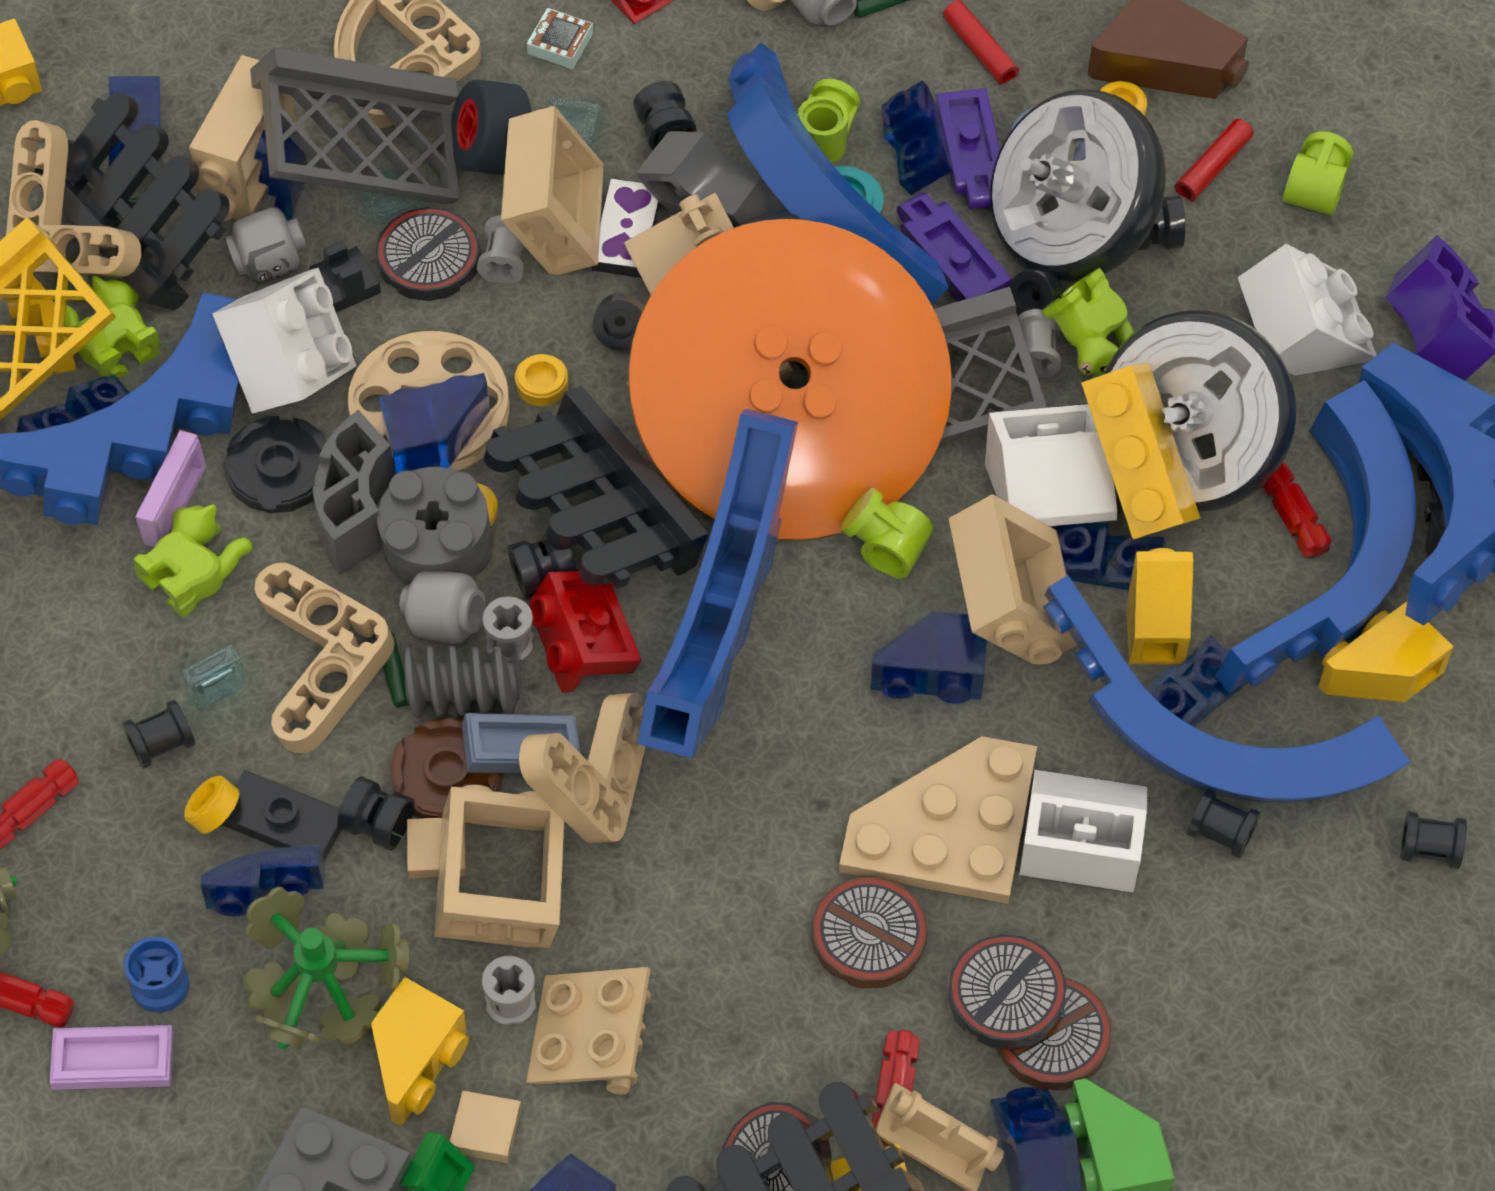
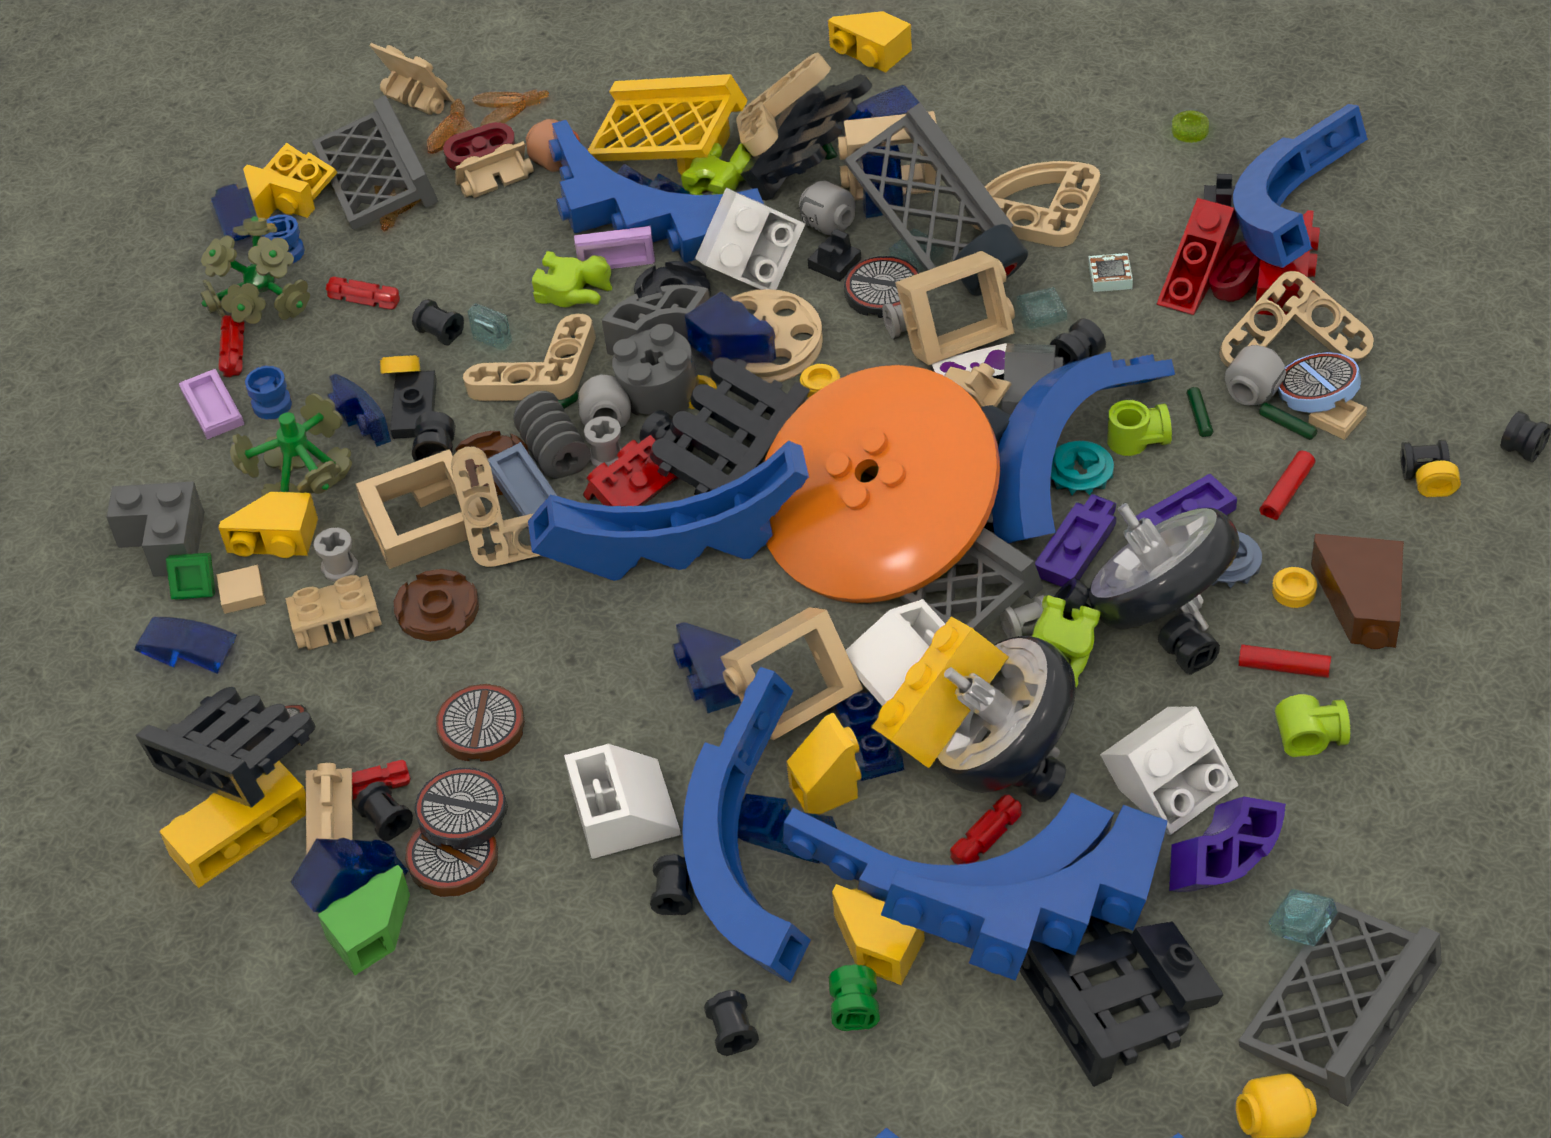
camera: 70 degrees right, 10 degrees down
(650, 932) = (438, 616): none -> reddish brown tile
(825, 64) = (1199, 412): none -> dark green piece
(891, 533) = (800, 589): lime piece -> none
(918, 137) = (1165, 478): clear blue slope -> none
(948, 825) = (577, 716): tan plate -> none
(958, 1079) = (383, 811): none -> black bush
(1458, 714) = (853, 994): none -> green wheel

